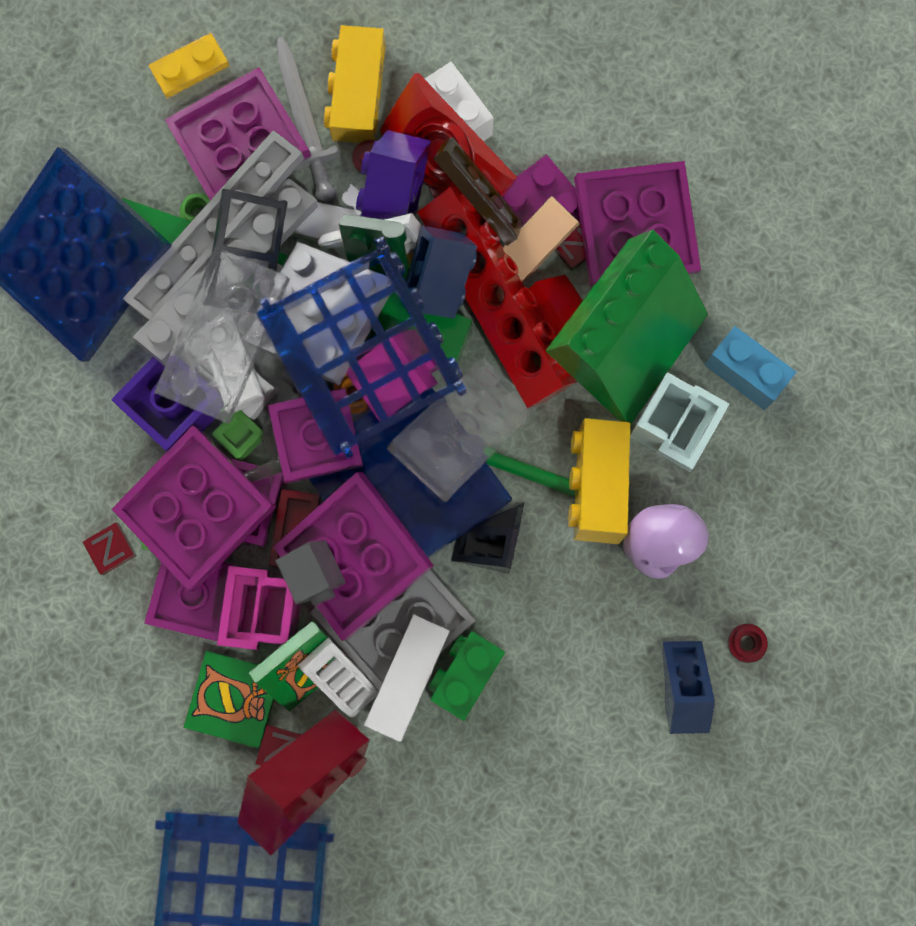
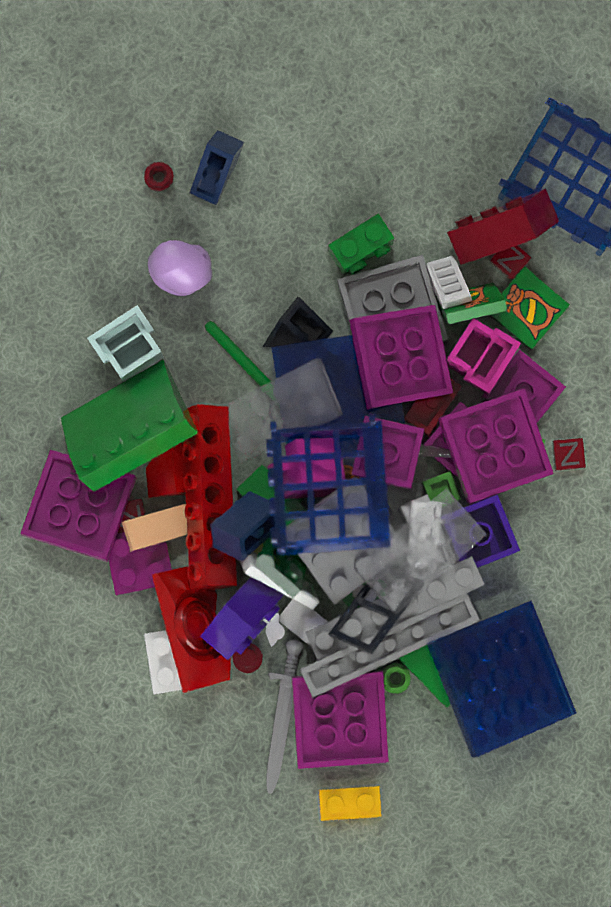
camera: 160 degrees left, 5 degrees up
(311, 573) = (434, 355): dark grey brick -> none
(355, 84) = (231, 720): yellow brick -> none
(407, 678) = (402, 261): white tile -> none
(479, 190) = (185, 574): dark brown tile -> none
(600, 481) = (203, 330): yellow brick -> none
(750, 368) = (55, 360): dark azure brick -> none

